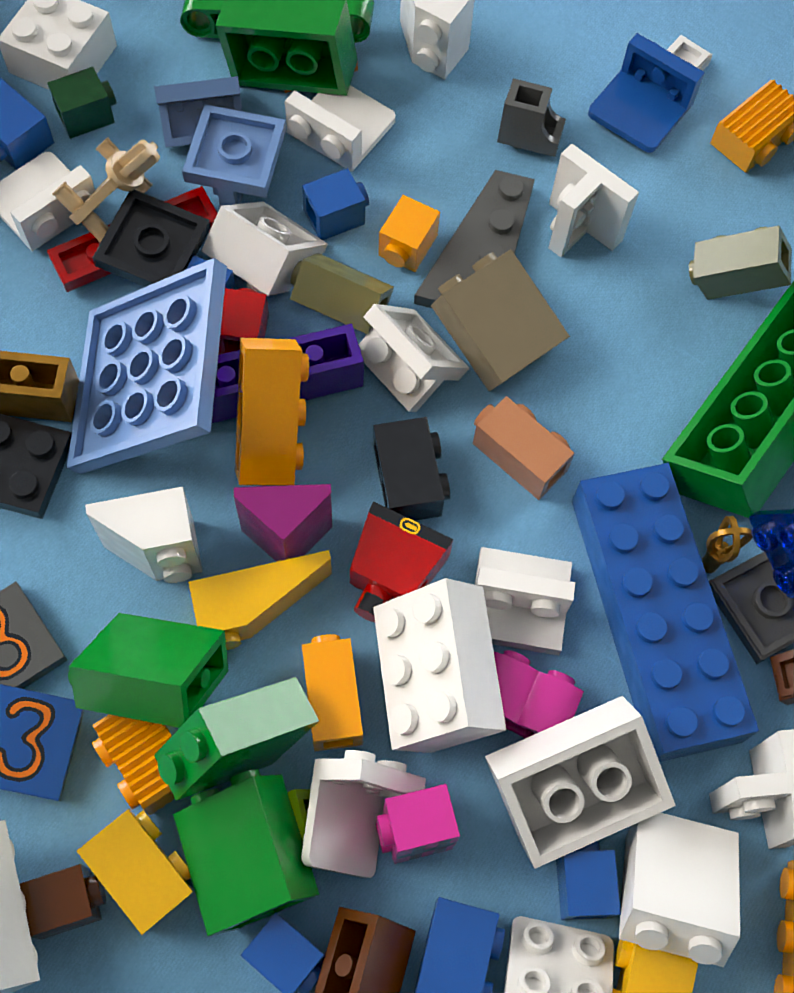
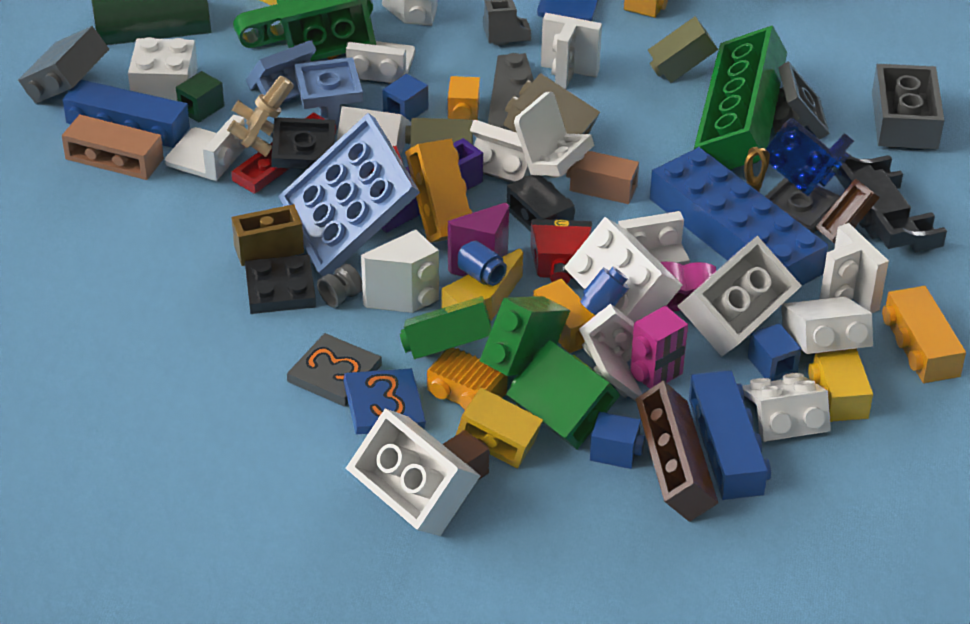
camera: 20 degrees left, 25 degrees down
(63, 508) = (339, 285): none -> dark grey wheel
(250, 572) = (481, 263): none -> blue brick
(383, 708) = (604, 290): none -> blue brick
(456, 381) = (545, 140): none -> white bracket

